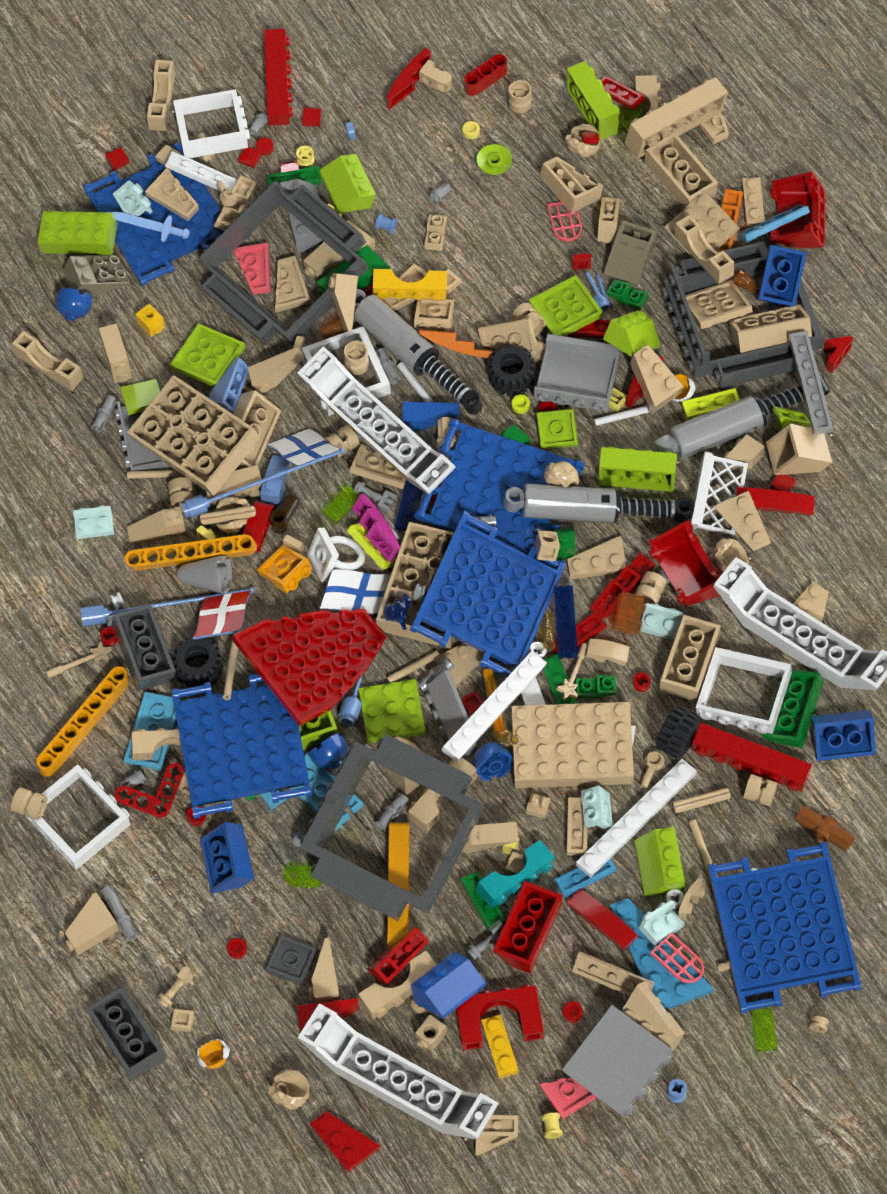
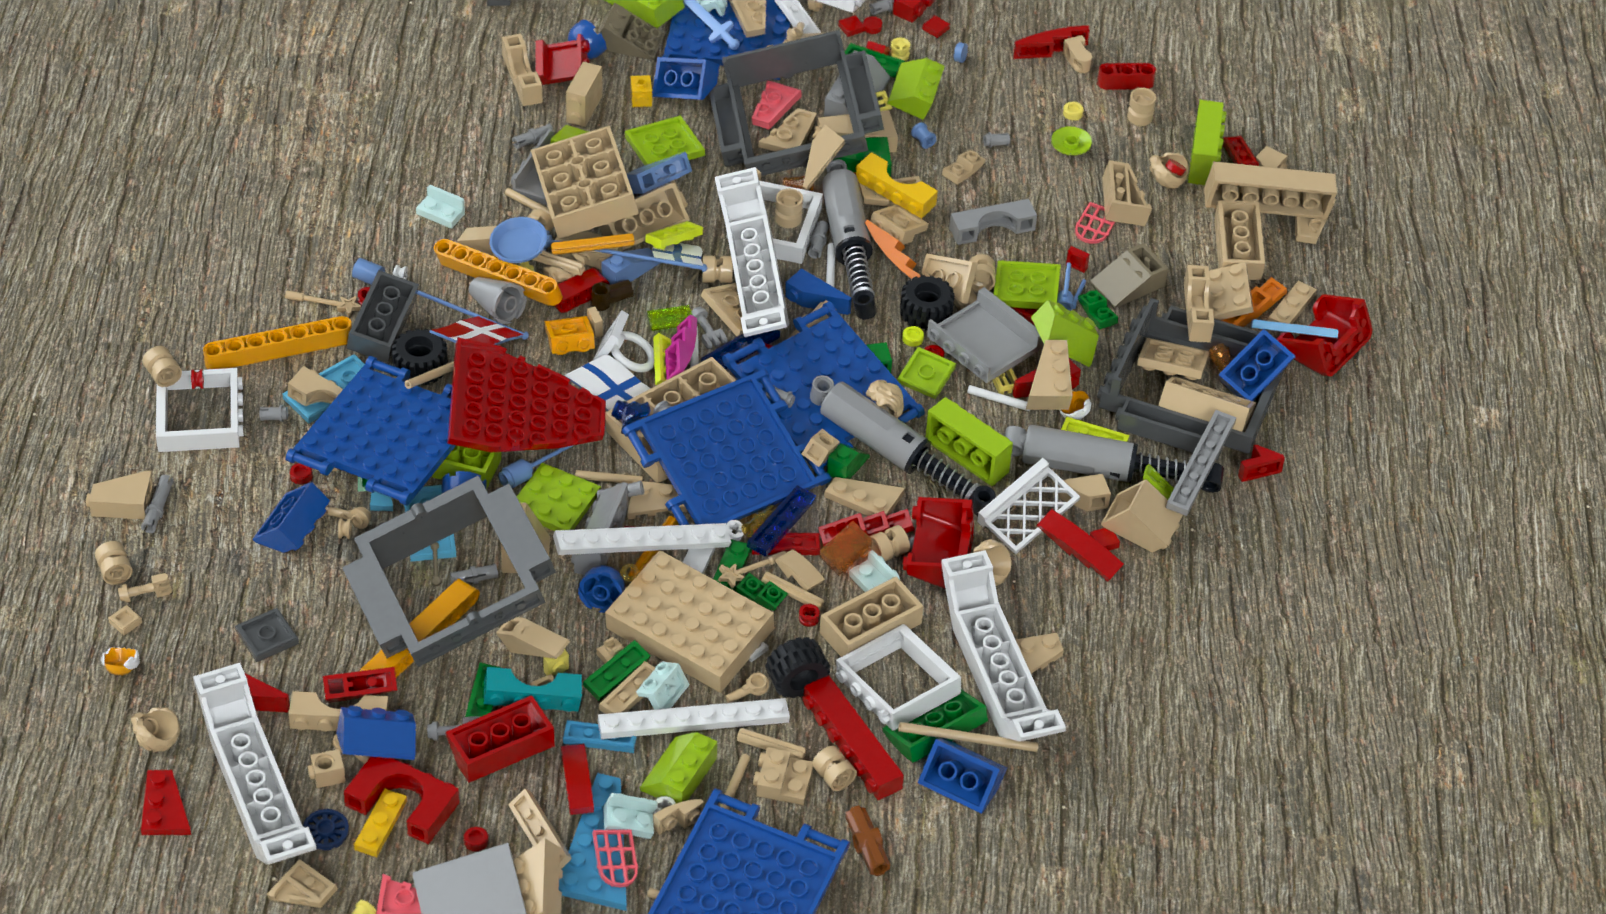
camera: 30 degrees right, 15 degrees down
(61, 795) = (197, 379): none -> red bush
(73, 333) = (560, 60): none -> panel
(126, 1034) = (62, 594): dark grey brick -> none
(138, 984) = (113, 562): none -> tan wheel
(153, 801) = (273, 437): red beam -> none
(178, 290) = (684, 78): none -> blue slope
(191, 518) = (518, 240): none -> medium blue piece
(237, 948) = (229, 595): red tile -> none
(245, 485) = (592, 244): none -> light orange axle
(270, 839) = (344, 528): none -> tan bush
(271, 822) = (359, 516): none -> tan plate
(273, 370) = (700, 182): tan slope -> none
(286, 433) = (673, 234): none -> neon yellow plate
(303, 878) = (336, 576): clear neon green plate -> none
(324, 977) = (282, 661): tan slope -> none
(424, 811) = (561, 585): tan arch -> none
(452, 281) = (941, 210): tan tile -> none
(468, 1076) = (327, 829): none -> dark blue wheel
(510, 252) = (1015, 215): none -> light grey arch
(555, 817) = (616, 670): none -> green plate
(608, 219) = (1132, 237): tan slope -> none
(617, 670) = (794, 591): none -> tan axle
(730, 819) = (782, 776): none -> tan plate
(745, 520) = (1035, 541): tan wing -> none
(818, 710) = (967, 736): none -> tan piece

